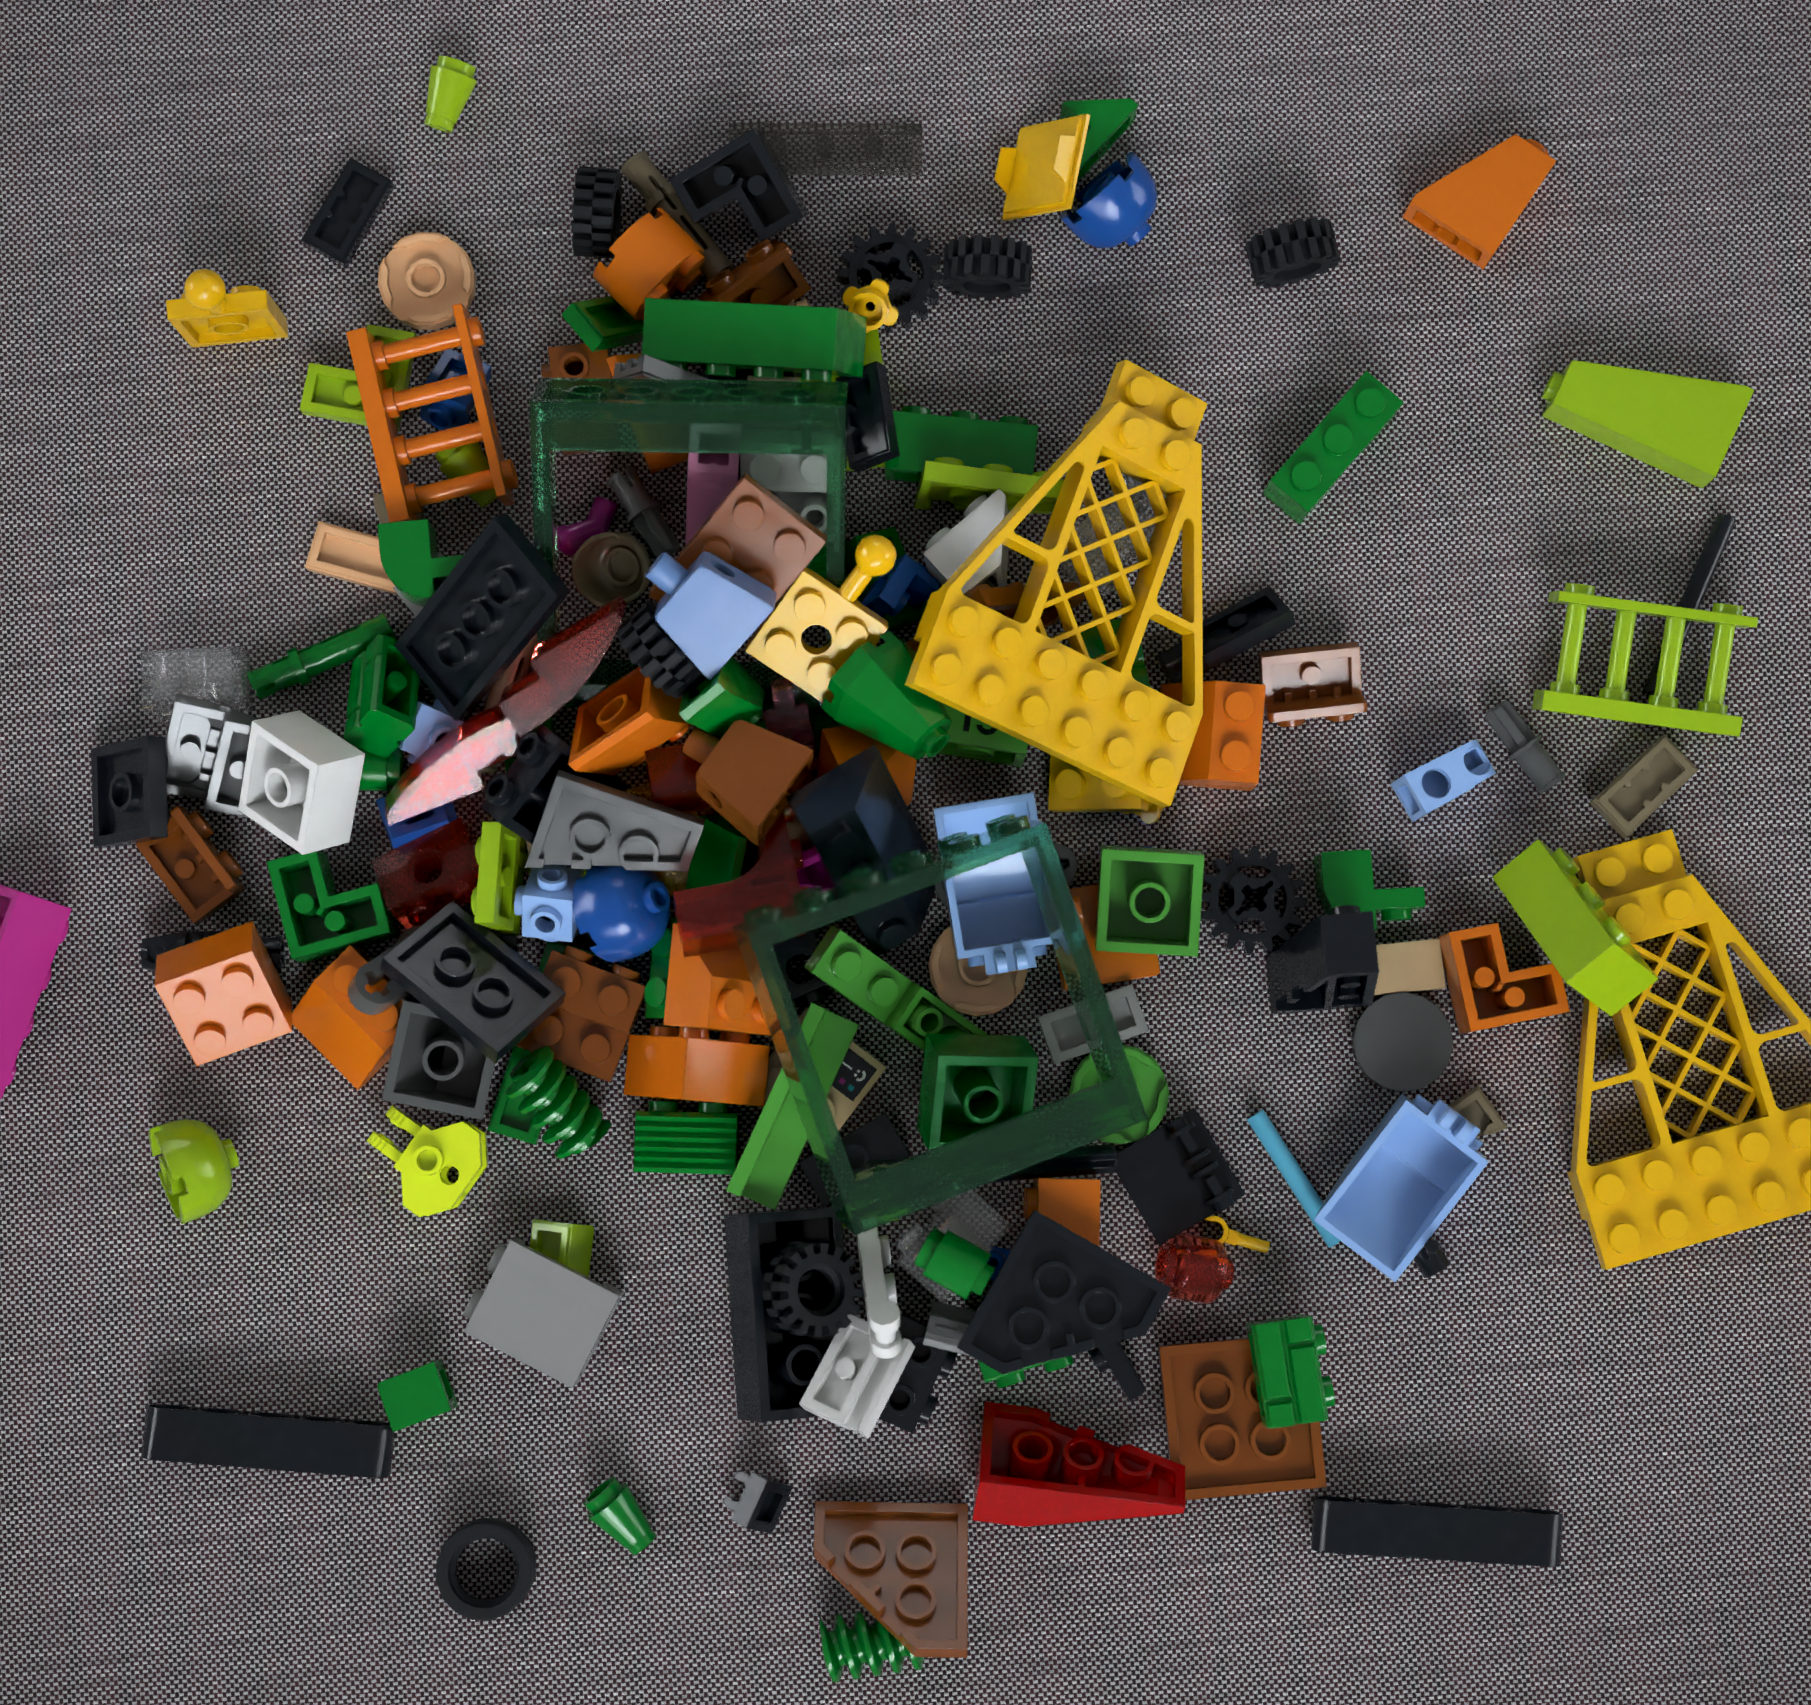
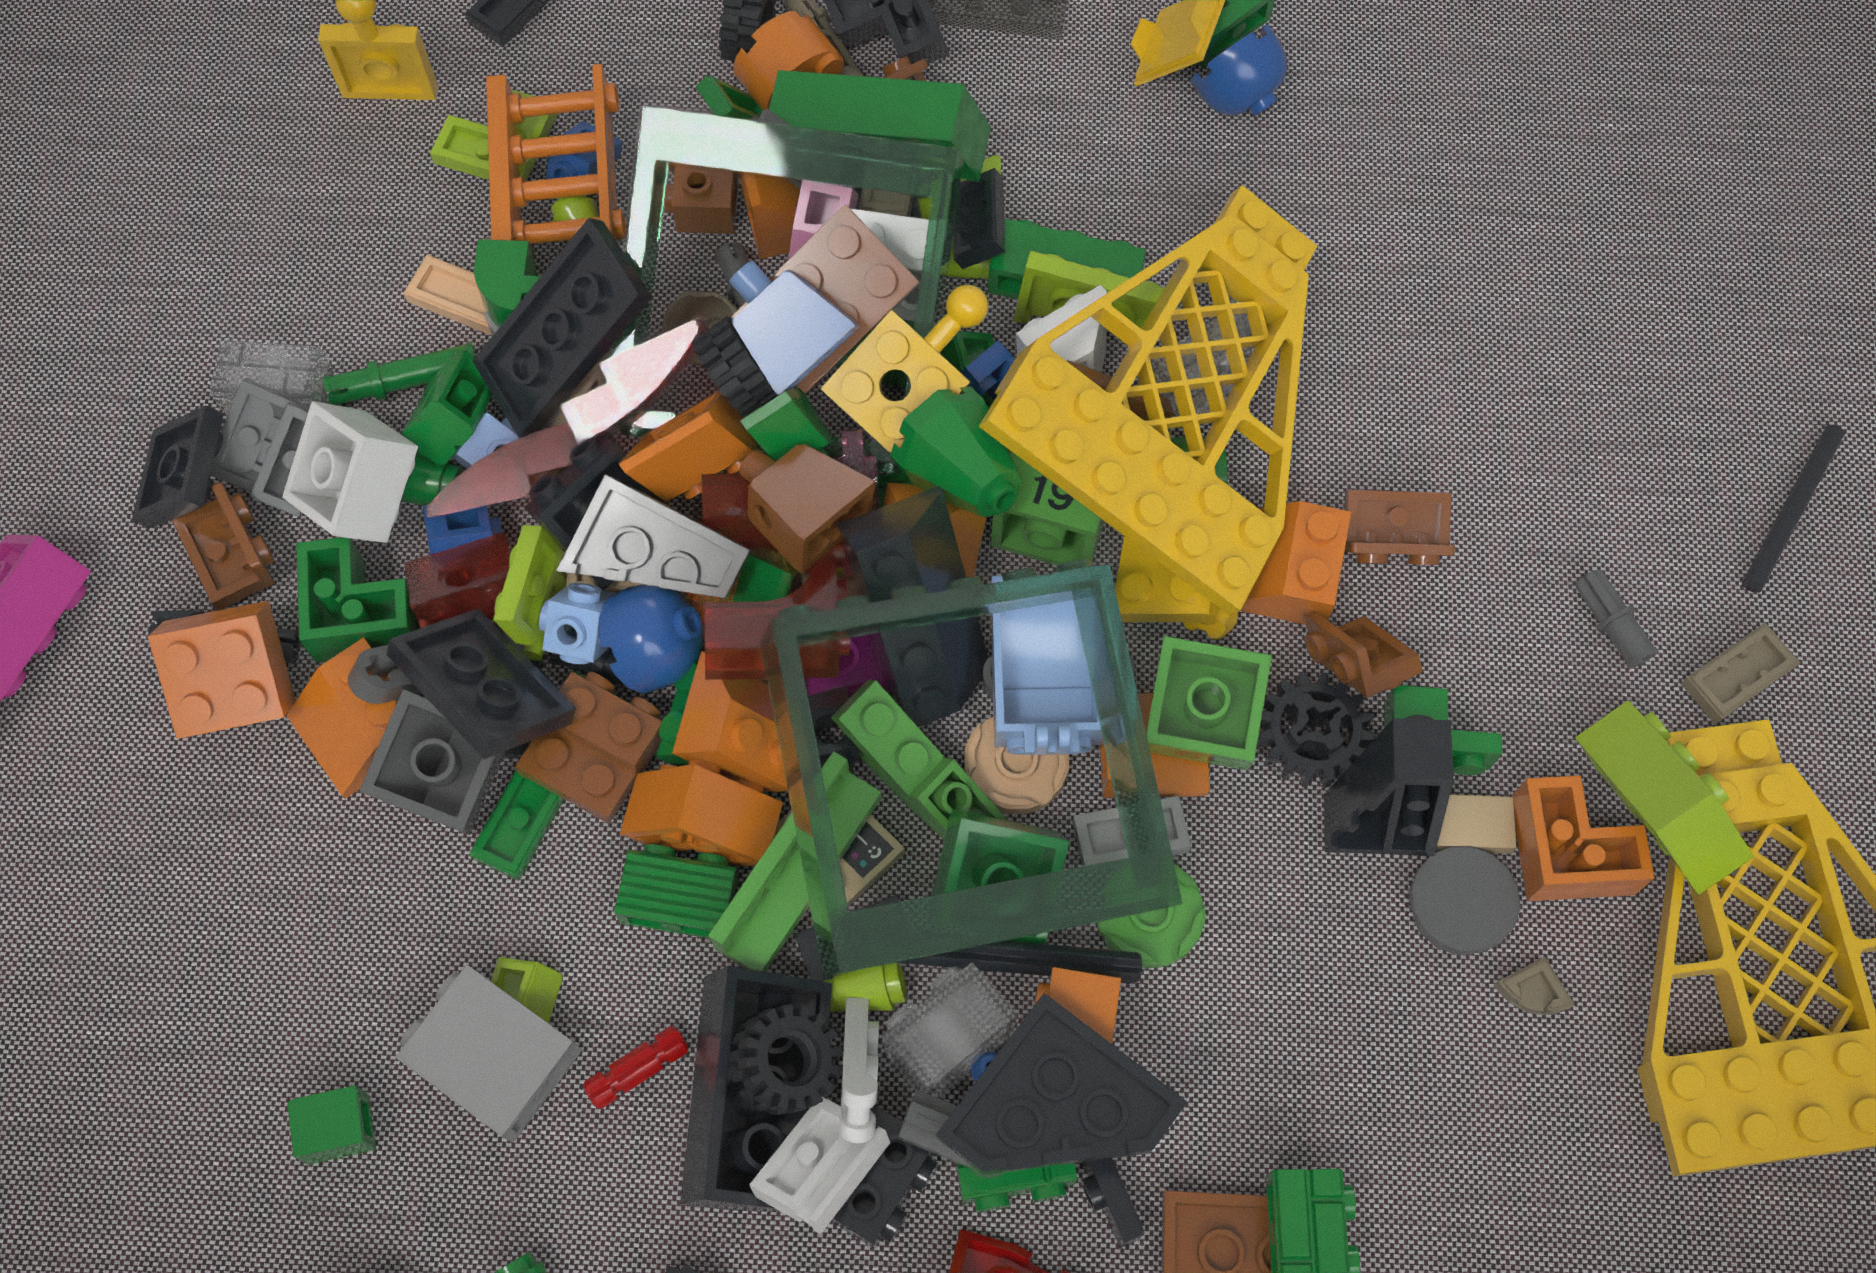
camera: 10 degrees right, 15 degrees down
(193, 1166) = (149, 843): lime cylinder -> none
(268, 1440) = (157, 1152): black beam -> none
(424, 280) = (567, 57): light nougat tile -> none
(430, 1157) = (406, 877): neon yellow hinge -> none
(557, 1103) = (544, 830): green piece -> none
(598, 521) = (704, 281): magenta arm -> none
(676, 1302) = (635, 1067): none -> red axle
(877, 294) = (1008, 131): yellow plate -> none
(908, 285) = (1020, 114): black gear -> none
(955, 1263) = (947, 1041): green brick -> none
(987, 267) = (1114, 109): black tyre -> none
(1177, 1176) = (1204, 1008): black hinge -> none
(1194, 1268) = (1216, 1109): clear red head -> none
(1233, 632) = (1320, 467): black hinge -> none
(1235, 1238) = (1257, 1083): yellow hand -> none
(1287, 824) = (1360, 654): none -> dark orange bracket
(1290, 1170) = (1335, 1030): medium azure bar -> none
(1293, 252) = (1414, 132): black tyre -> none
(1332, 447) = (1455, 294): green arch -> none
(1403, 1183) = (1458, 1044): light blue piece -> none
(1431, 1259) = (1479, 1136): black hand -> none
(1442, 779) = (1526, 637): light blue leg -> none
(1482, 199) = (1601, 115): orange slope -> none
(1649, 415) = (1760, 323): lime slope -> none
(1662, 706) = (1762, 598): lime fence -> none

